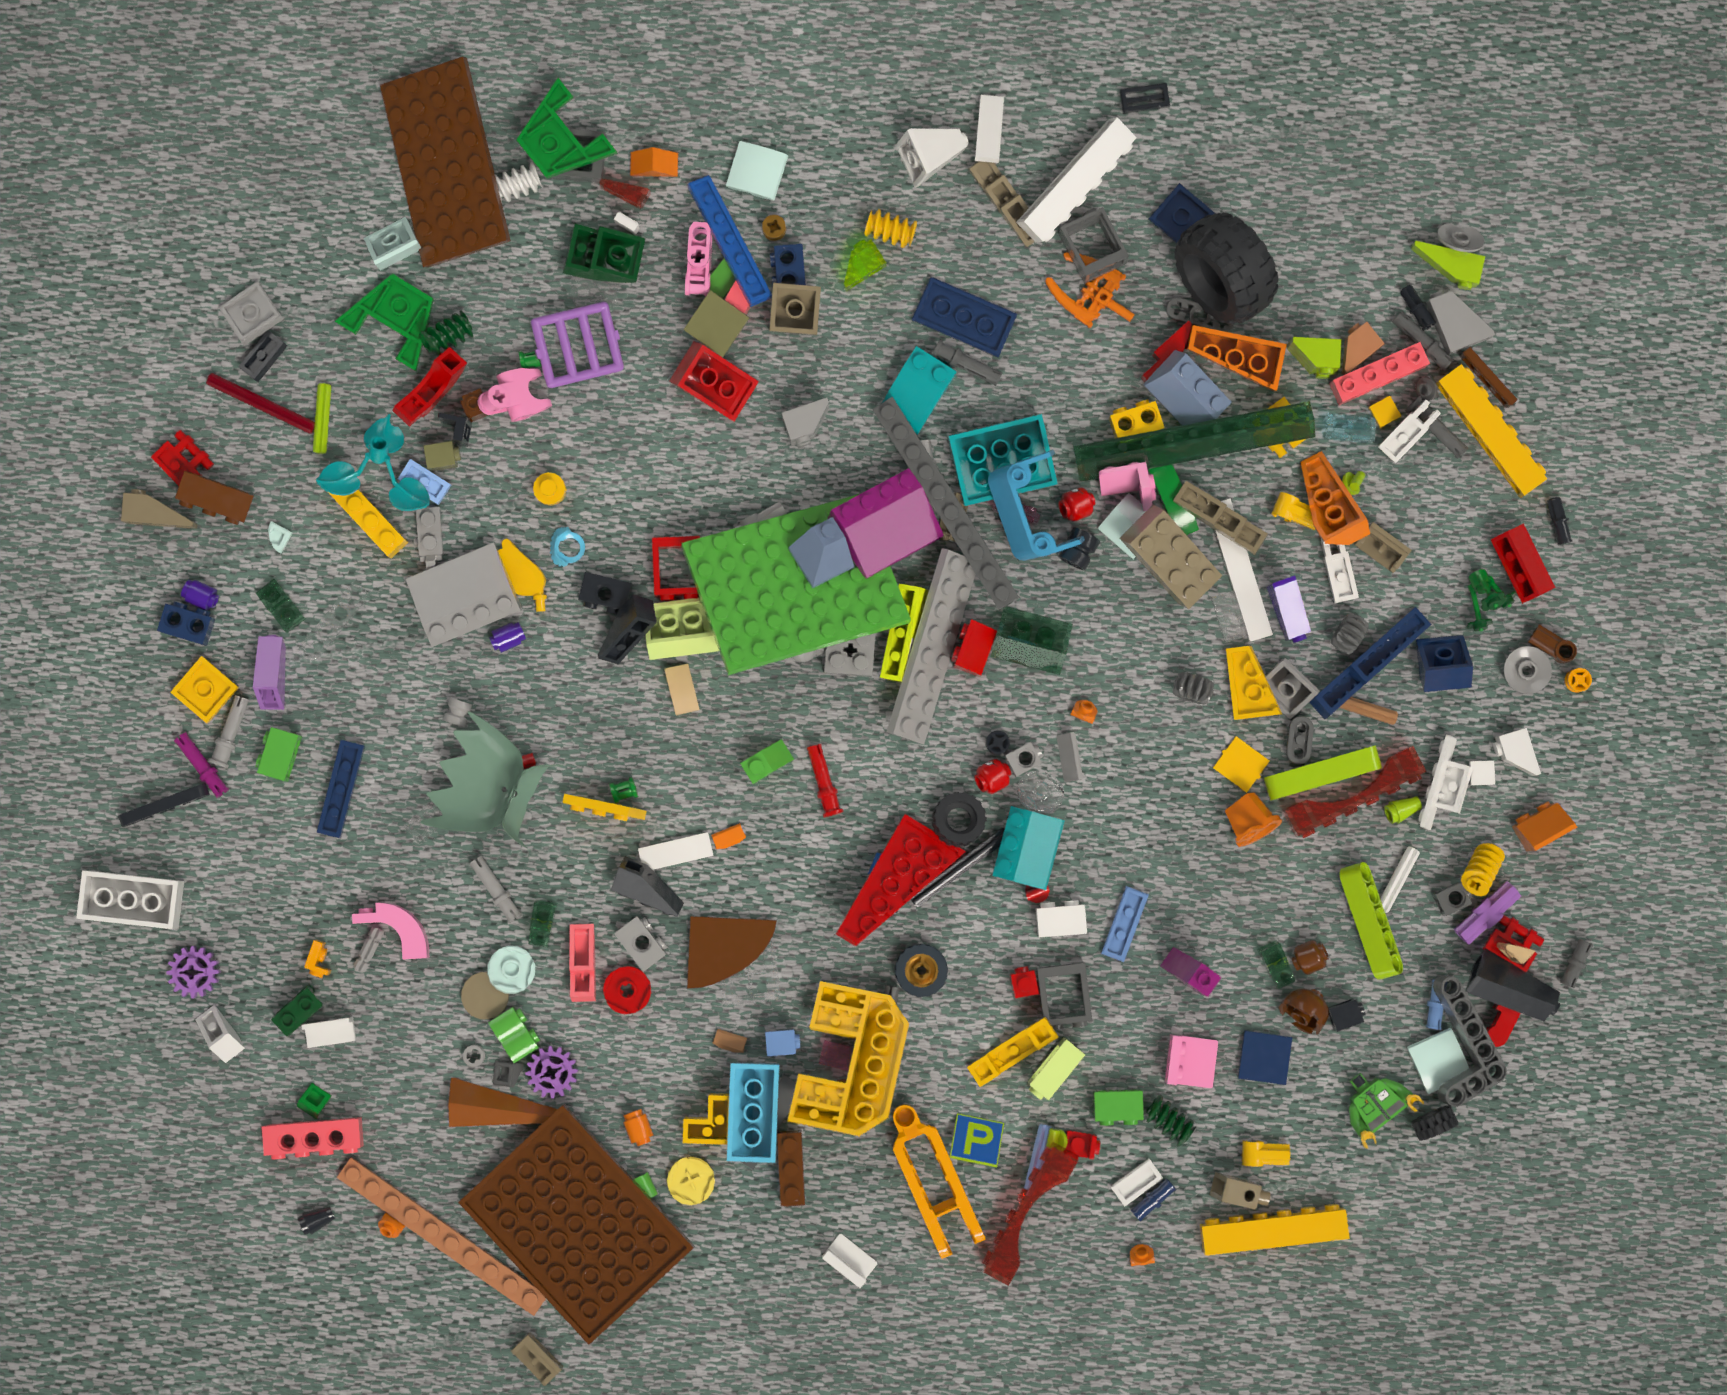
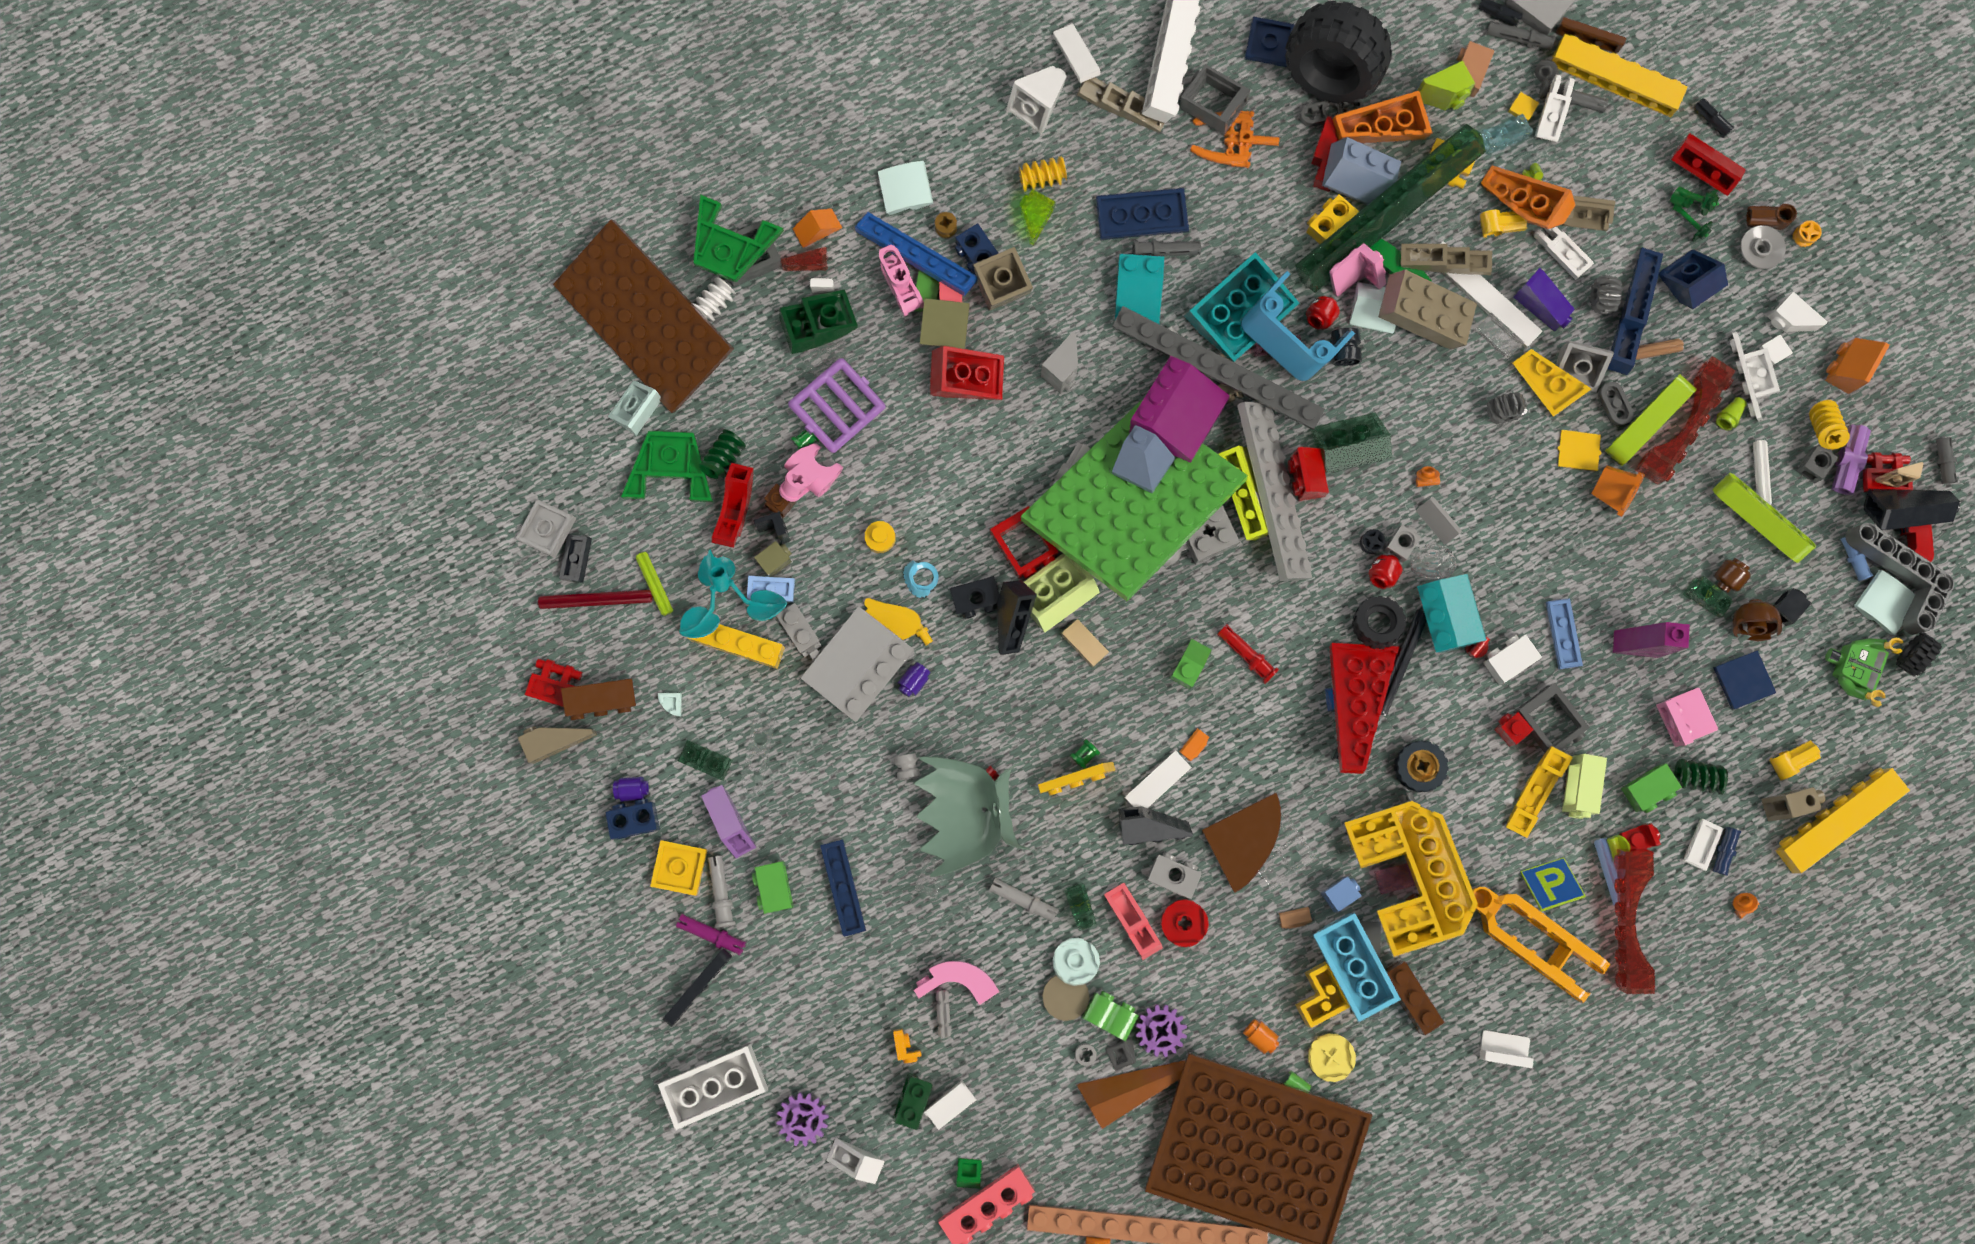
camera: 30 degrees left, 5 degrees down
(1379, 373) = (1503, 77): coral brick -> none

